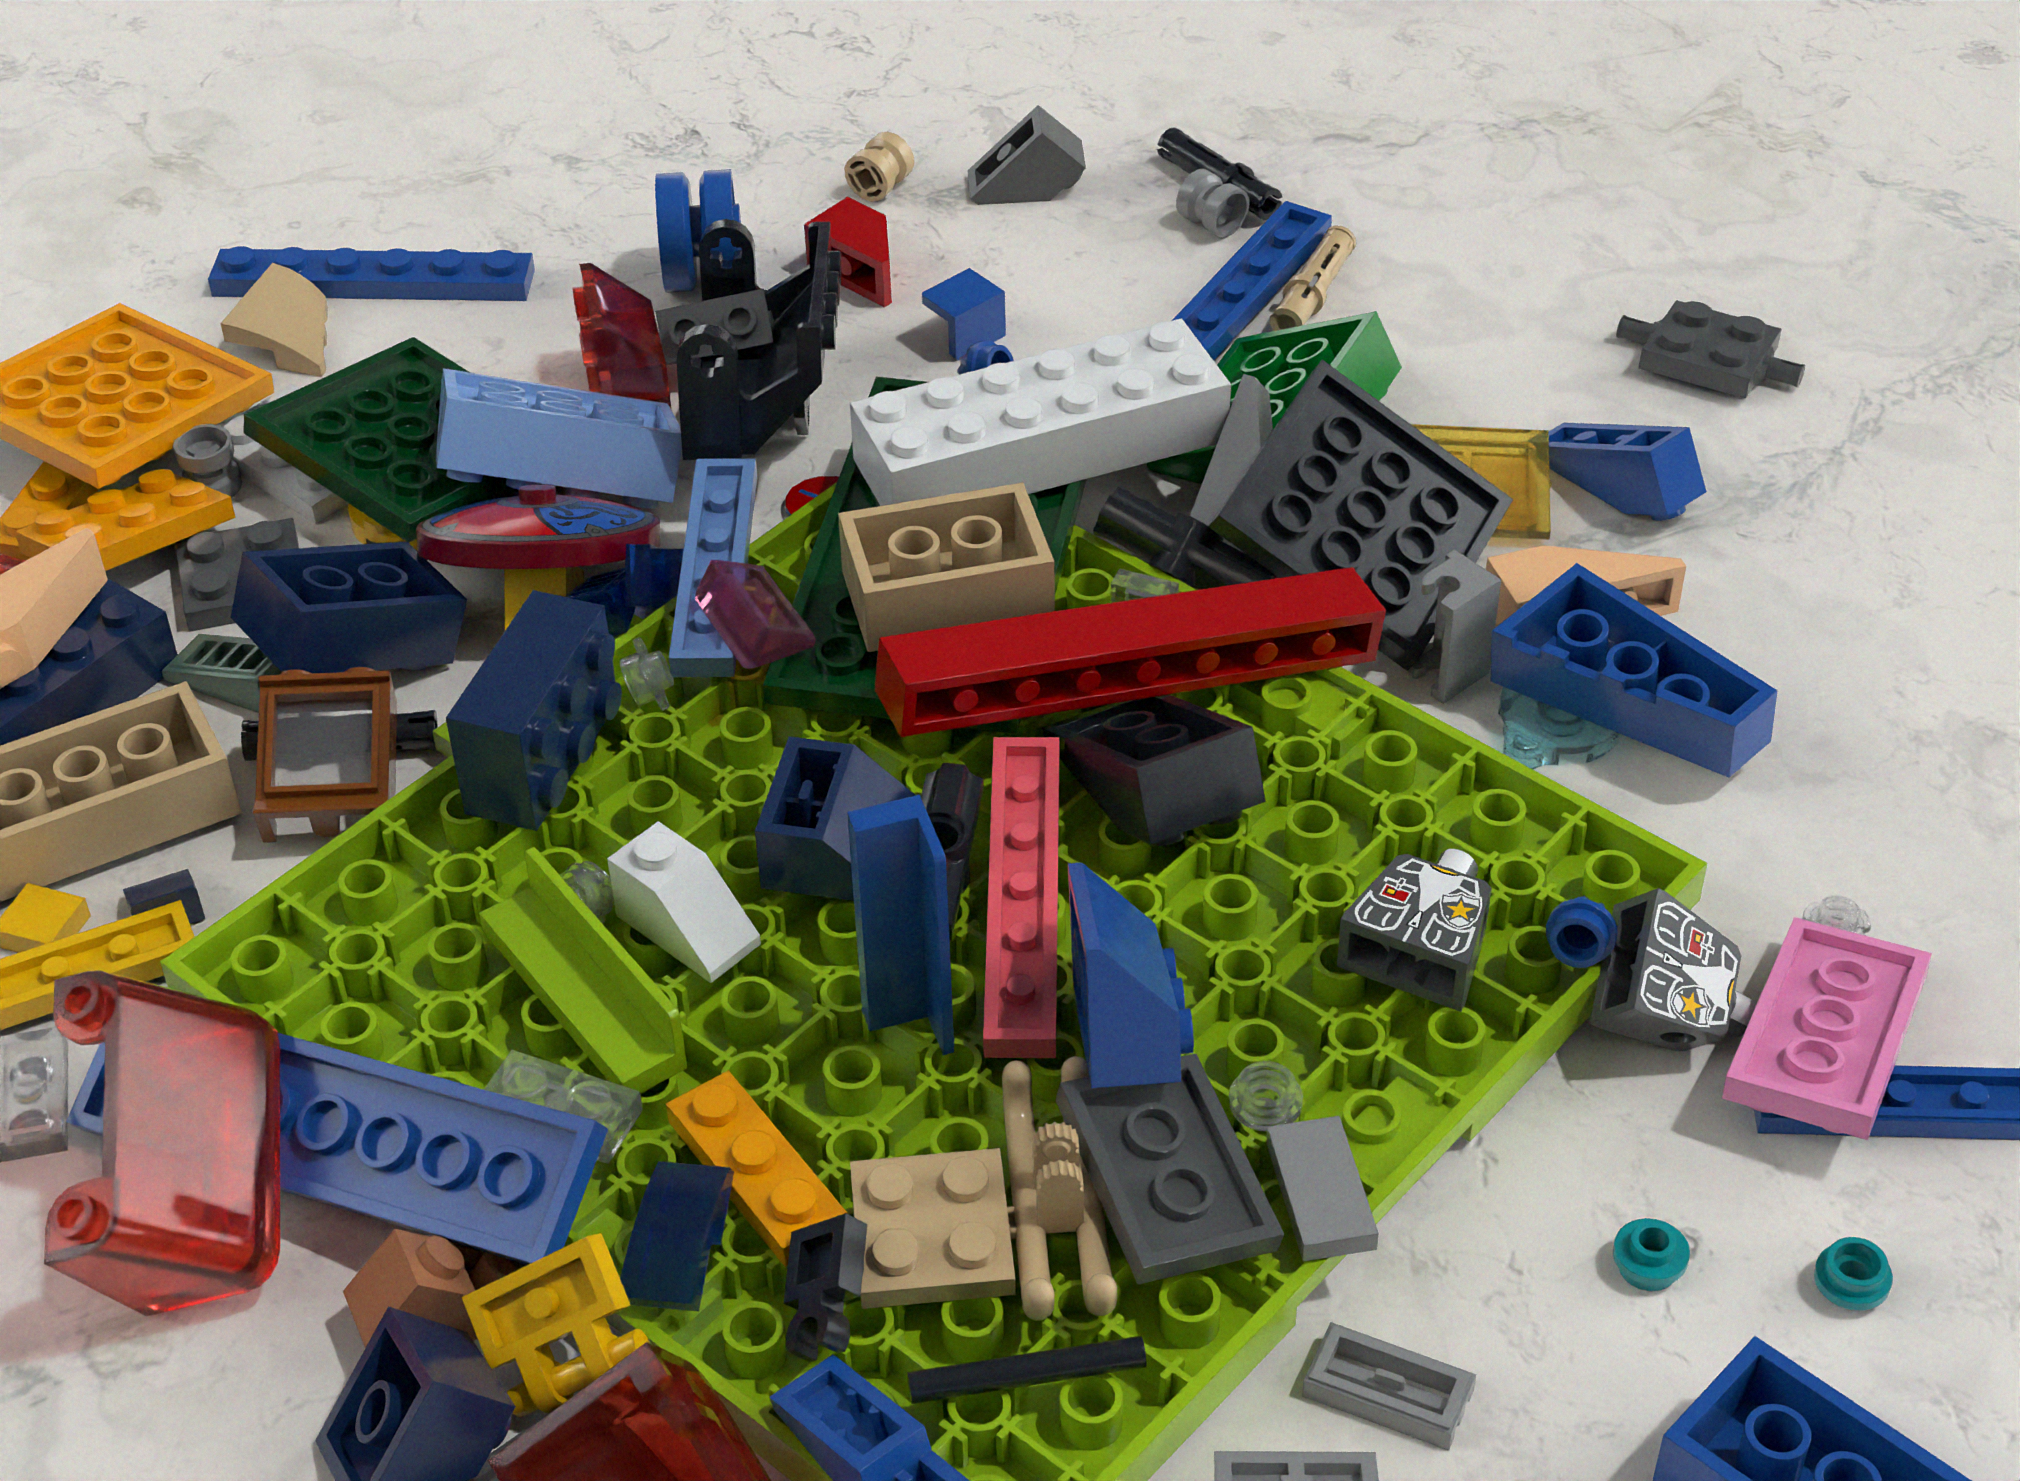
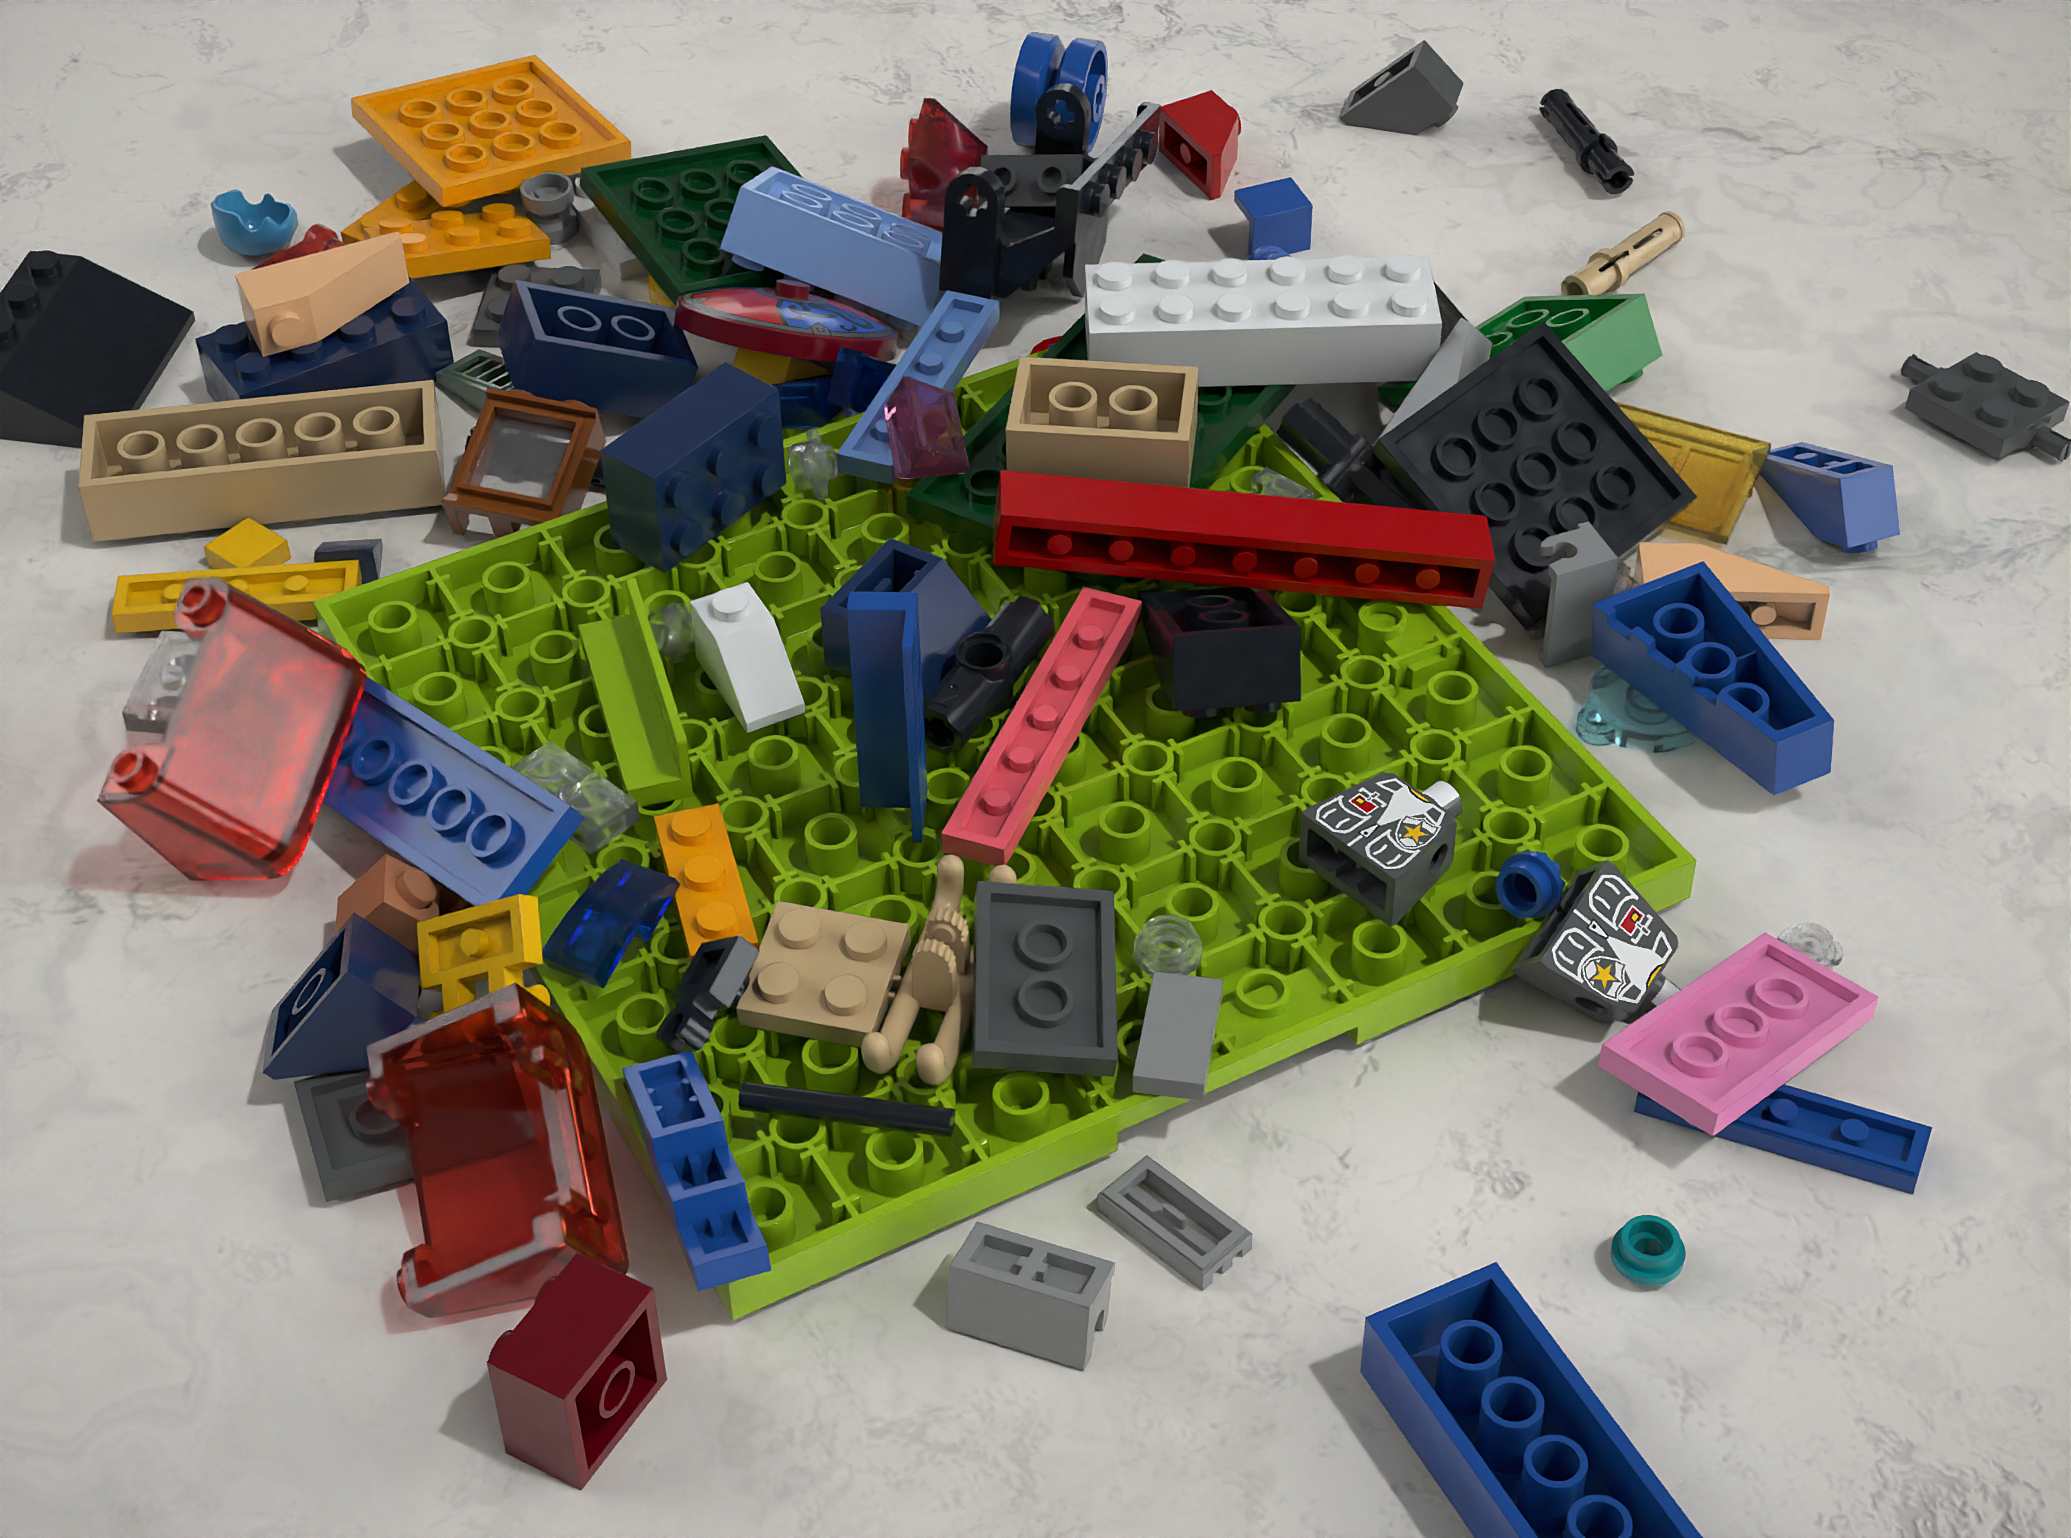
camera: 20 degrees right, 0 degrees up
(283, 316) = (671, 98): tan slope -> none
(382, 274) = (770, 76): blue plate -> none
(879, 166) = (1266, 69): tan wheel -> none
(1124, 988) = (1067, 810): blue slope -> none
(1215, 204) = (1562, 166): light grey wheel -> none
(1253, 275) = (1551, 249): blue plate -> none
(1647, 1268) = (1468, 1182): teal plate -> none

